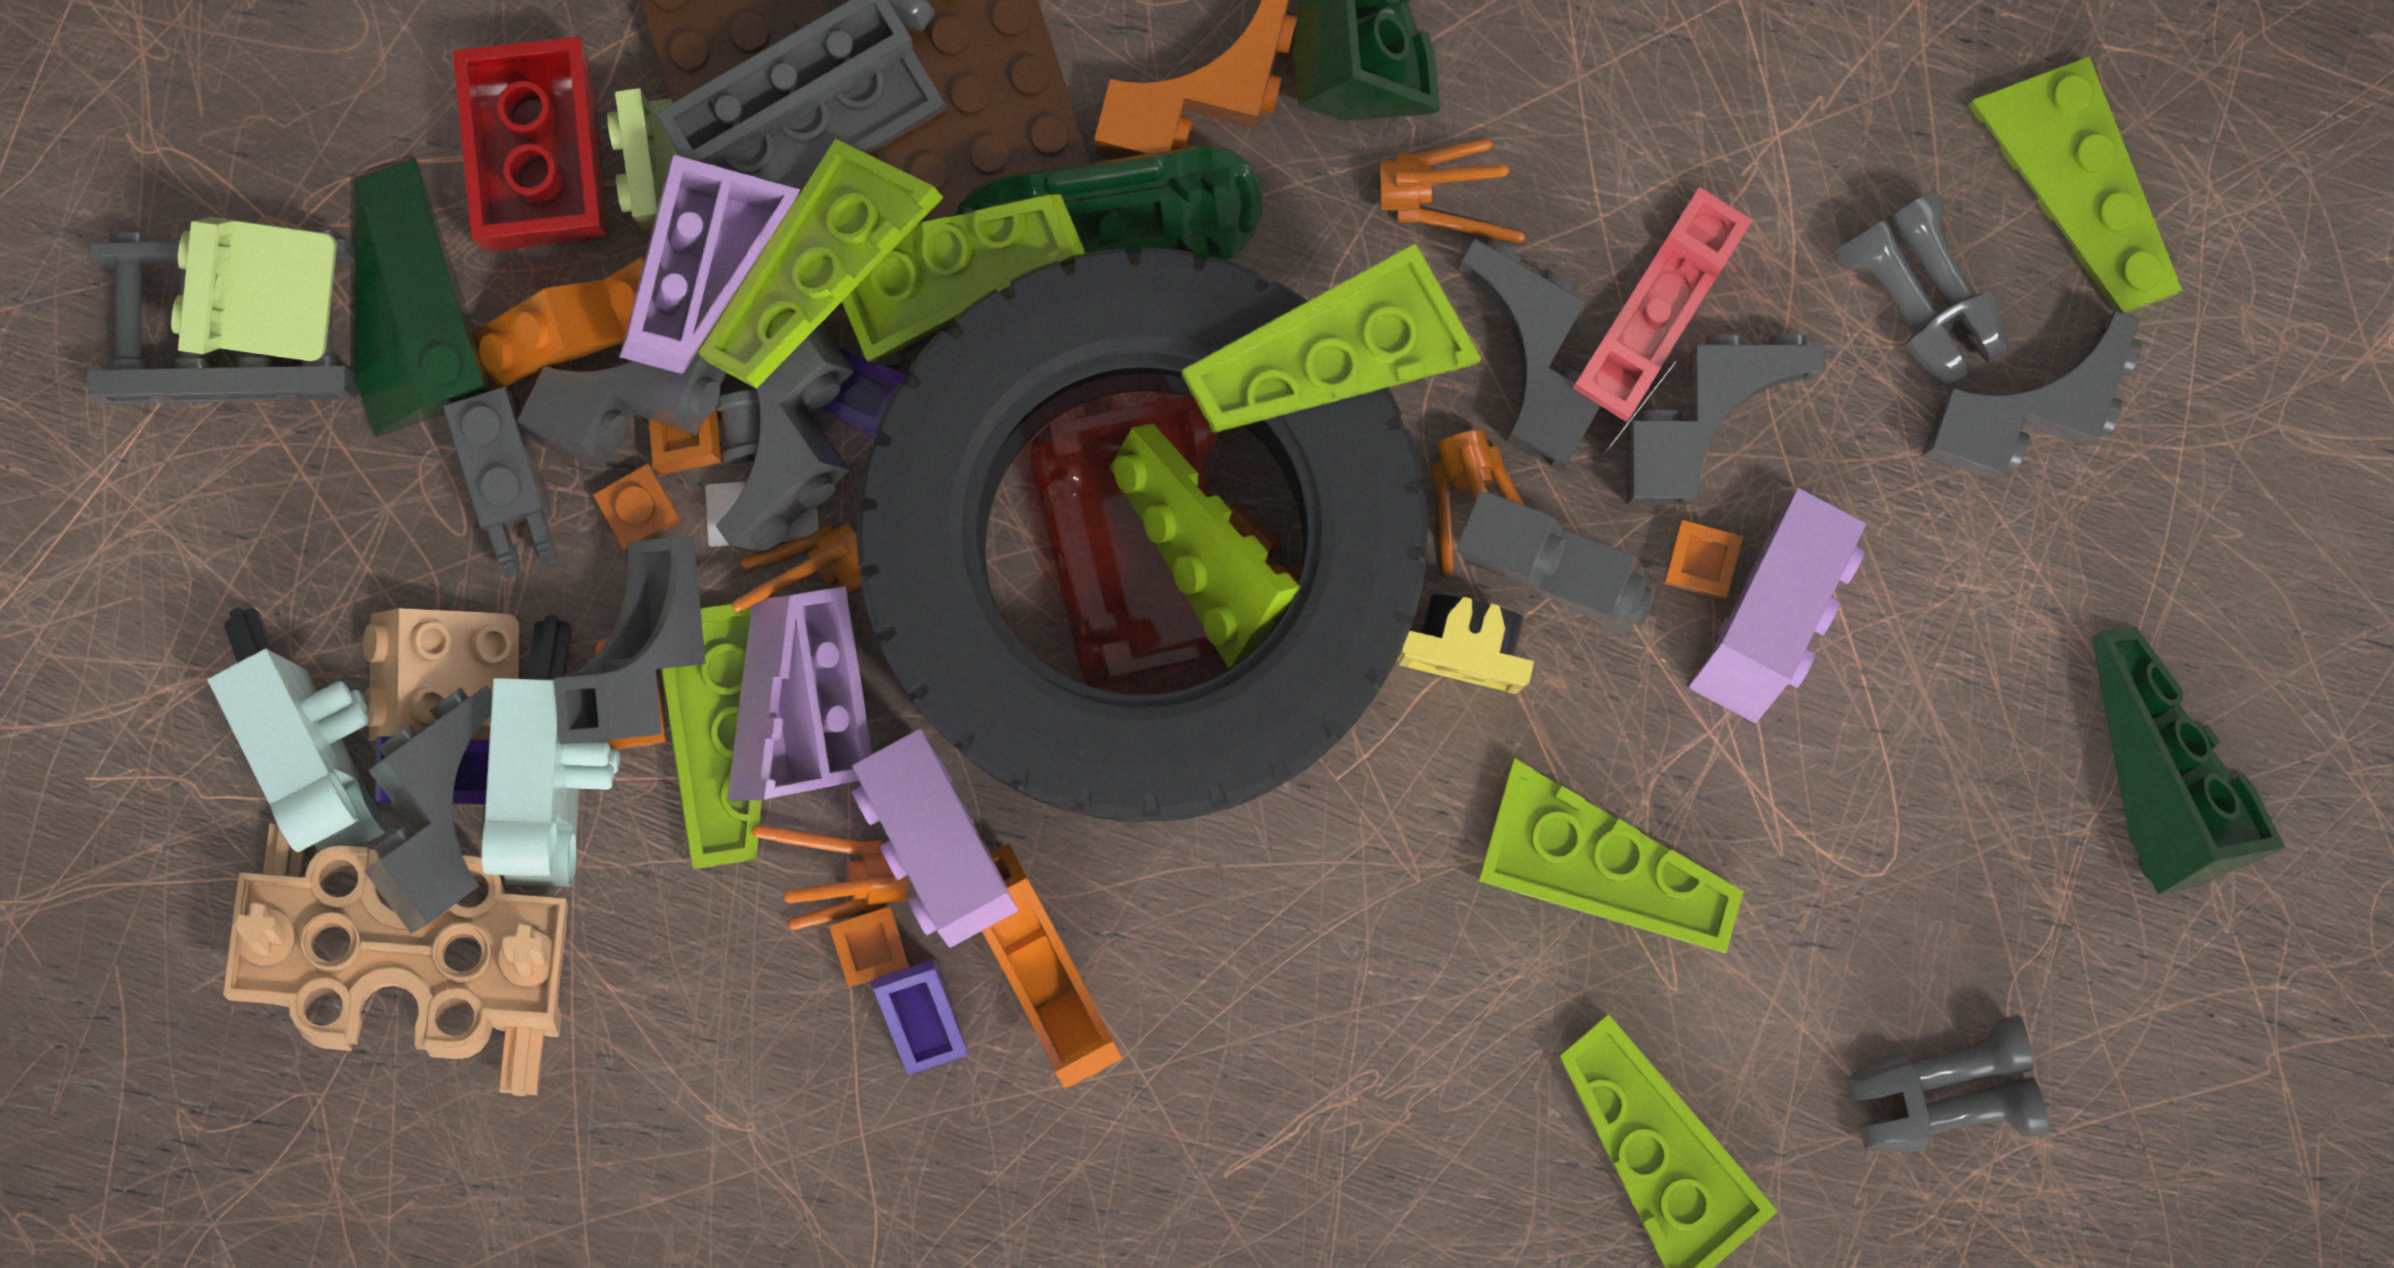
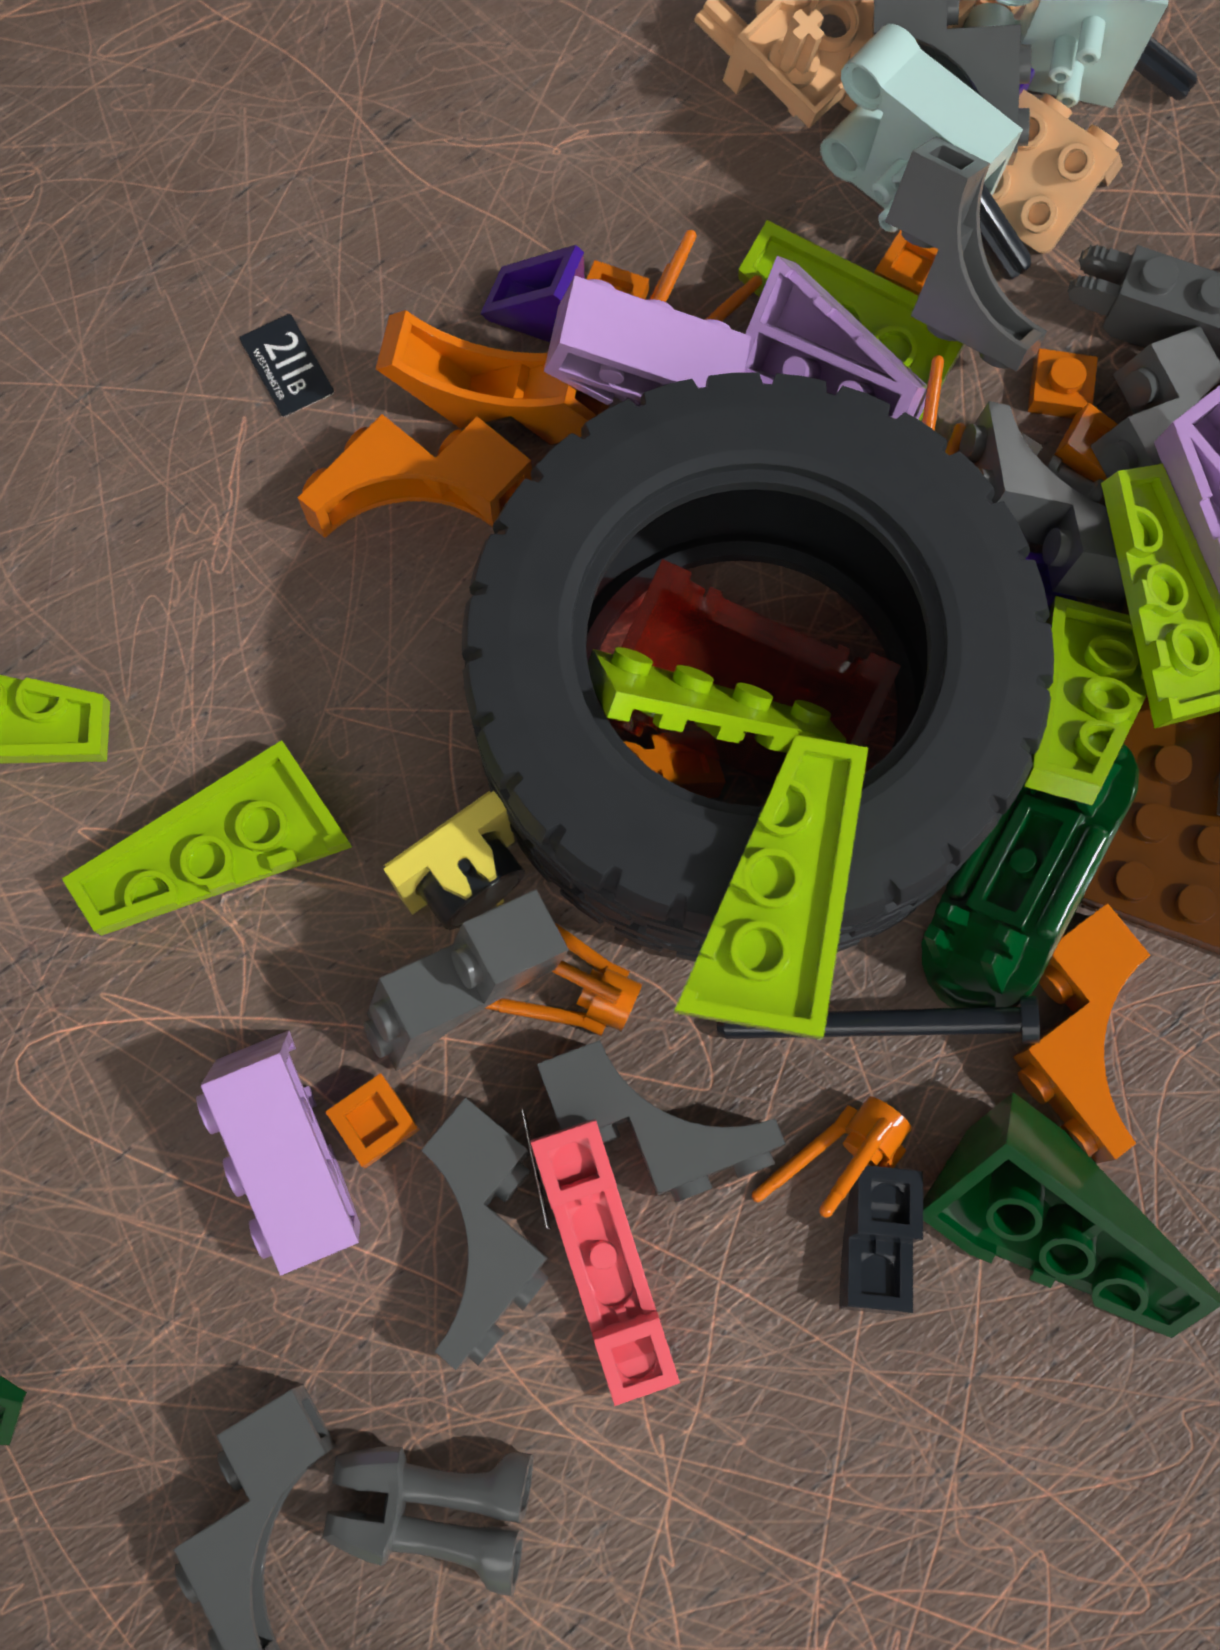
camera: 130 degrees right, 10 degrees down
(1149, 1182) = (286, 365): none -> black sticker
(1179, 1008) = (386, 466): none -> orange arch
(1287, 196) = (915, 1022): none -> black bar
(1482, 122) = (878, 1241): none -> black slope

